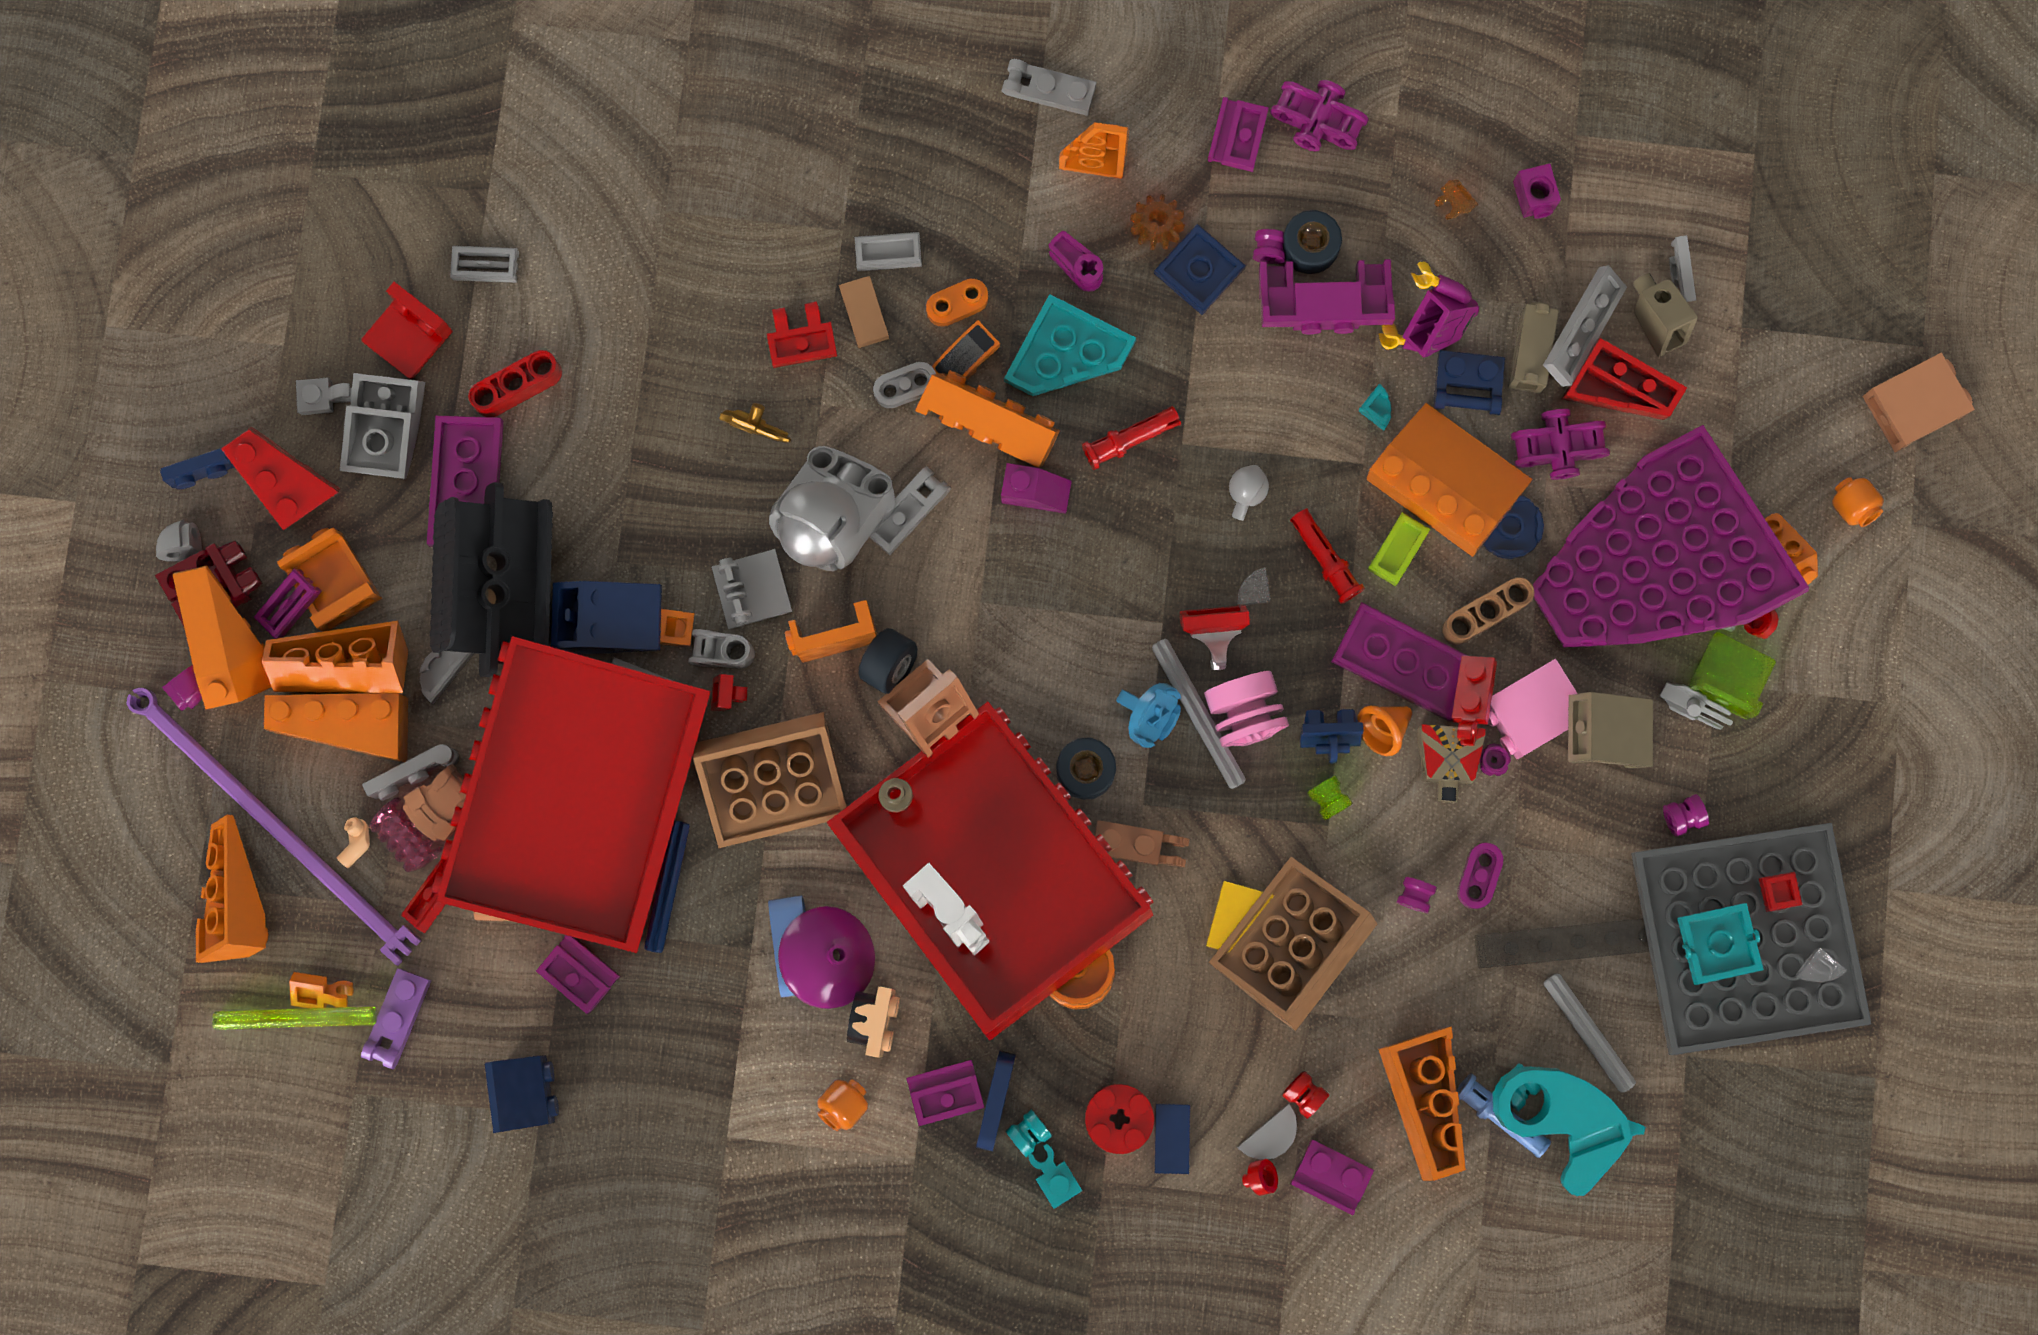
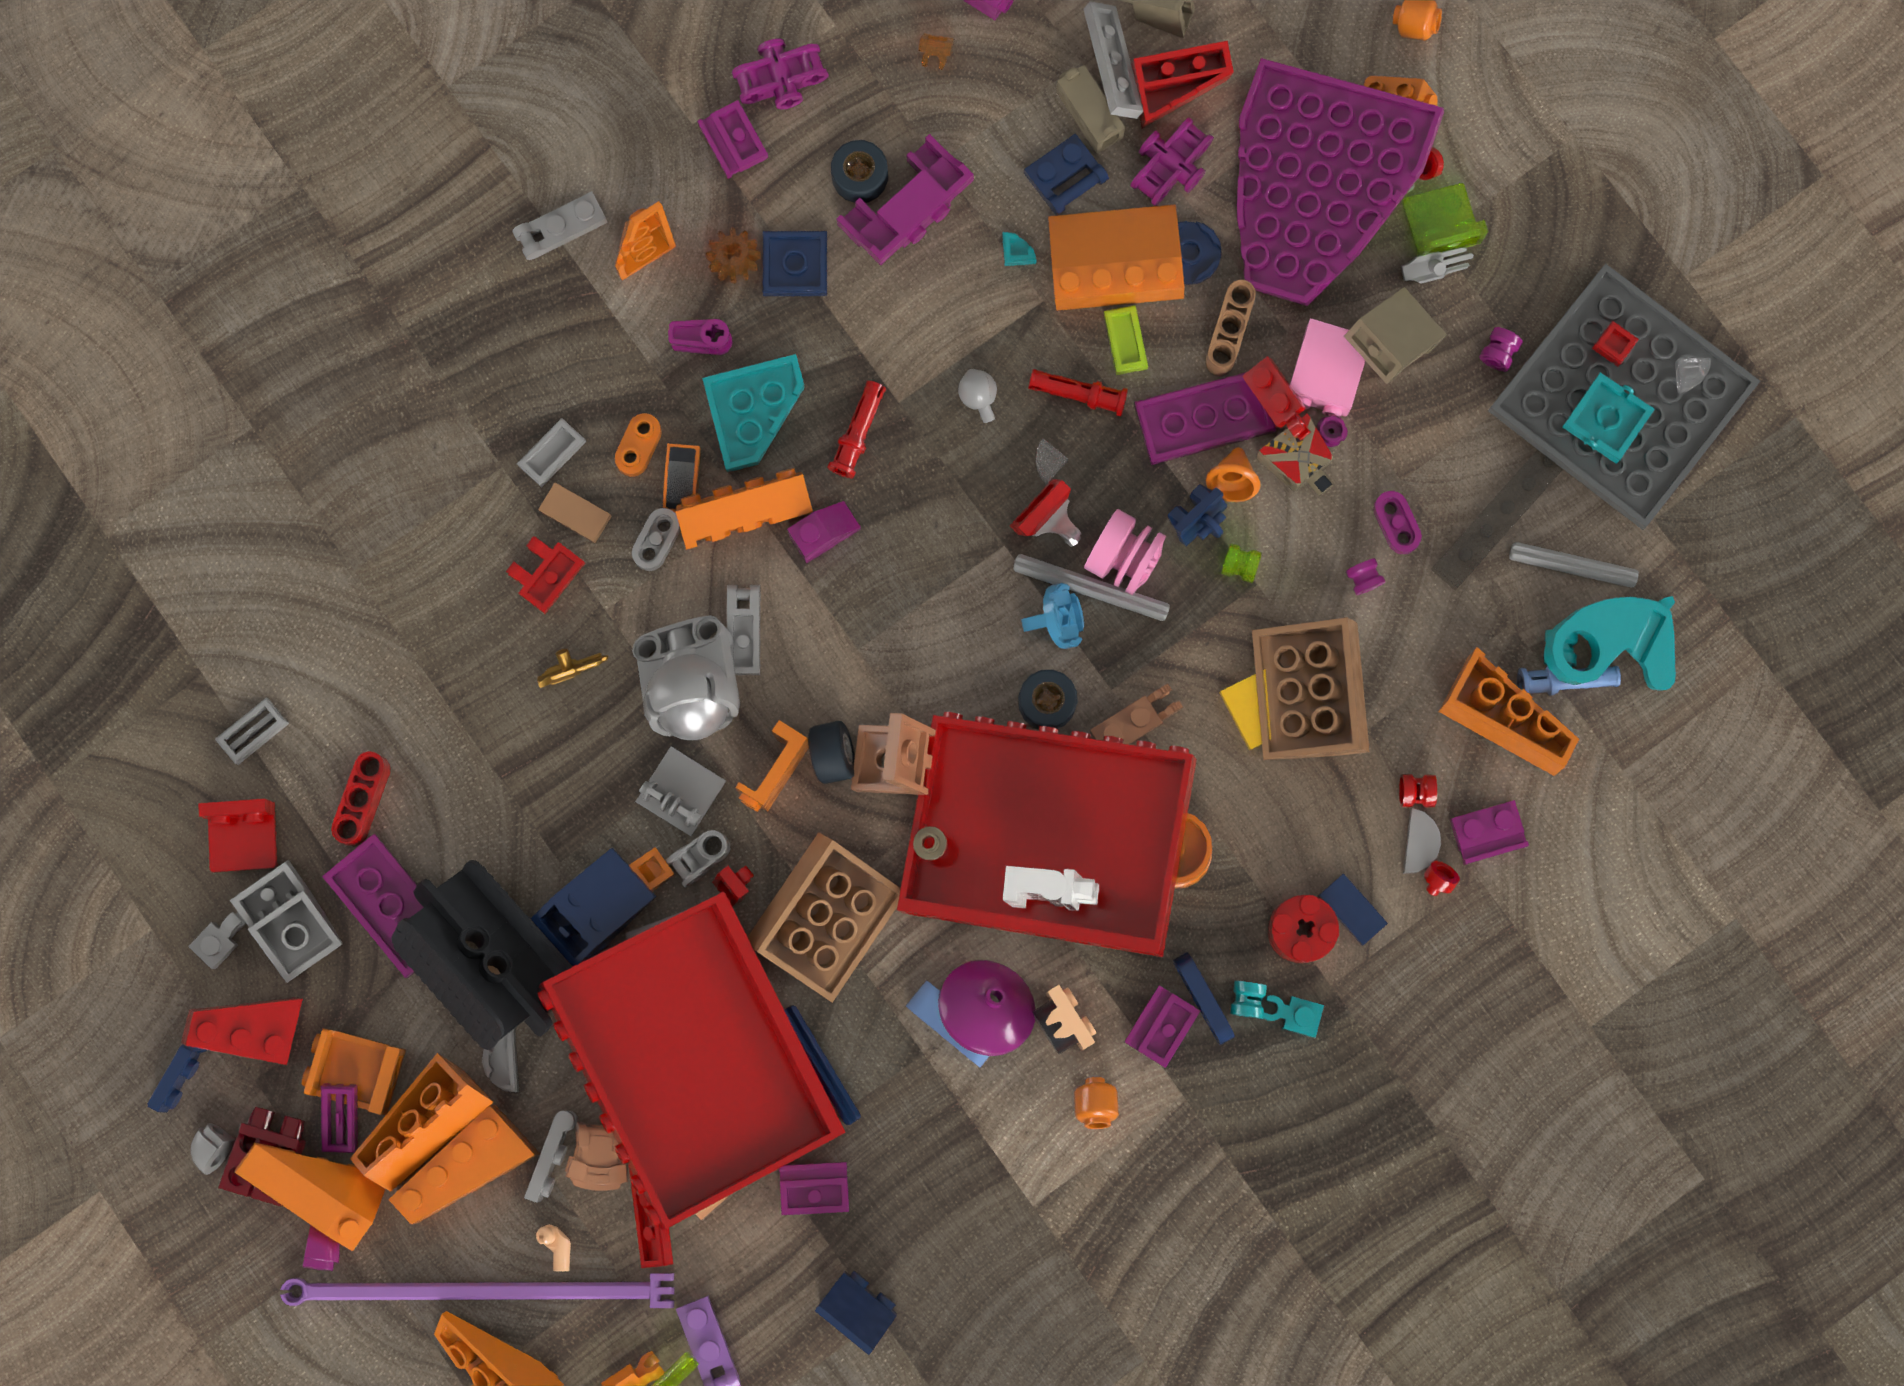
camera: 45 degrees left, 0 degrees up
(402, 837) = (590, 1208): clear pink piece -> none
(1269, 246) = (831, 201): magenta wheel -> none
(1439, 318) = (1004, 144): magenta torso -> none

